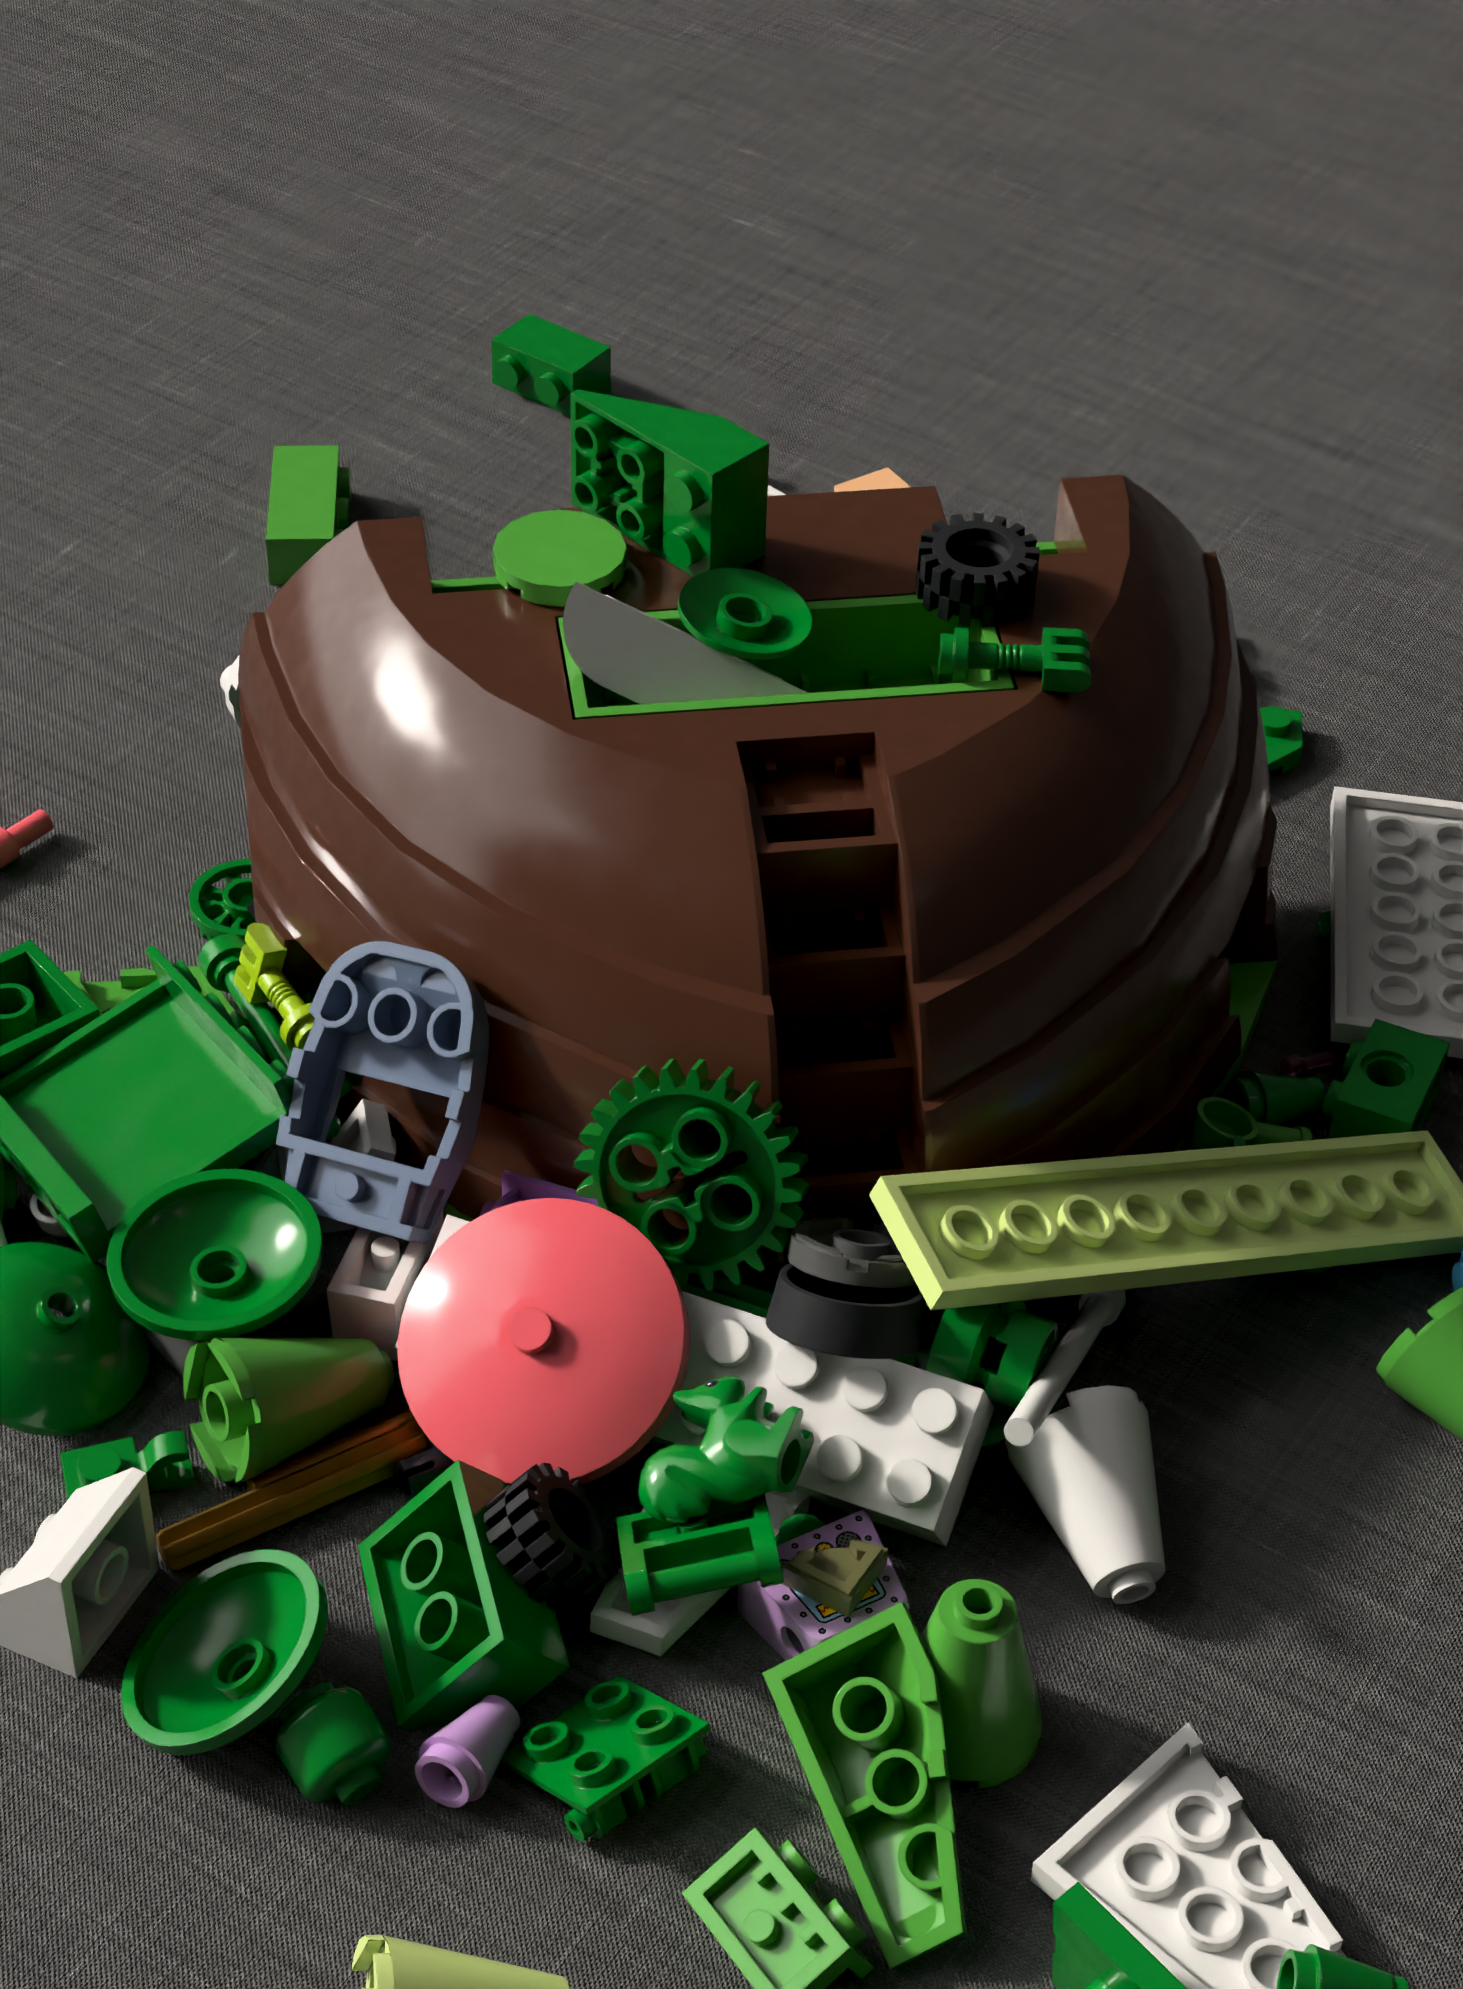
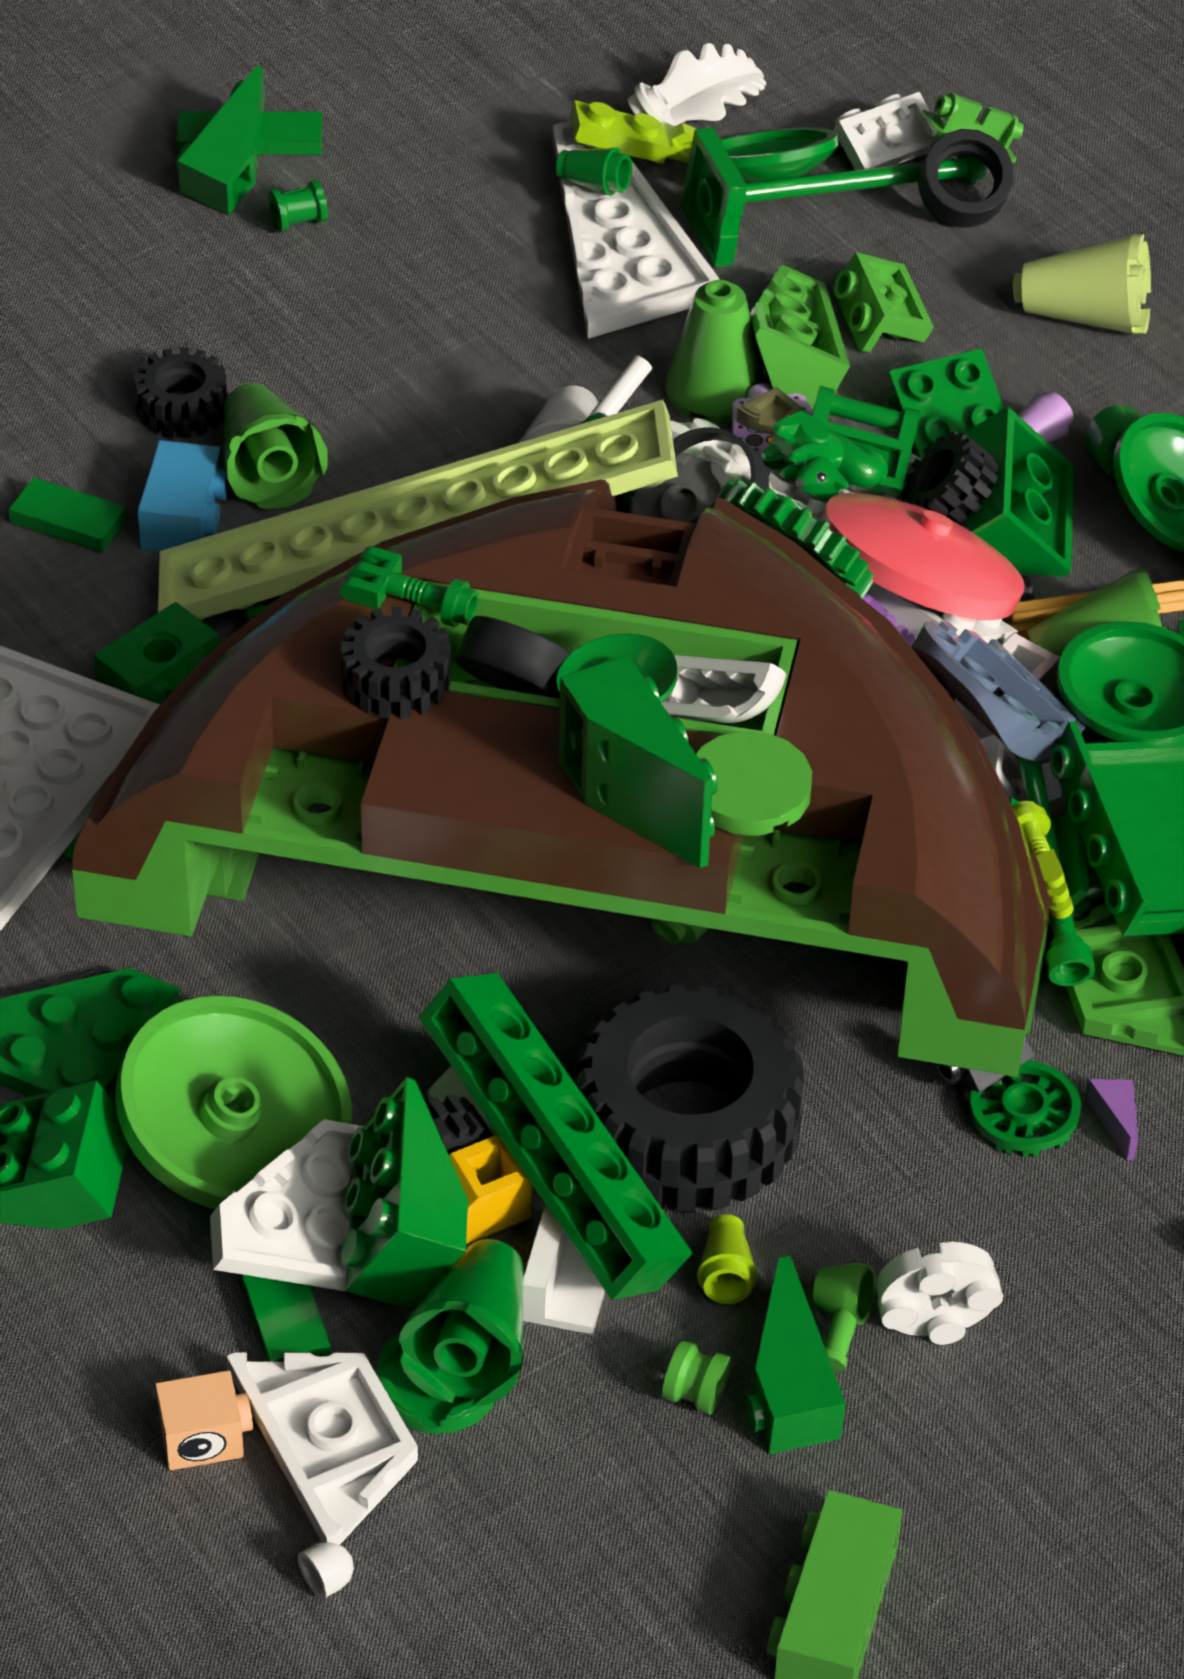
camera: 160 degrees left, 5 degrees up
(154, 914) = (1115, 1109): none -> medium lavender piece
(869, 601) = (510, 657): none -> black tyre

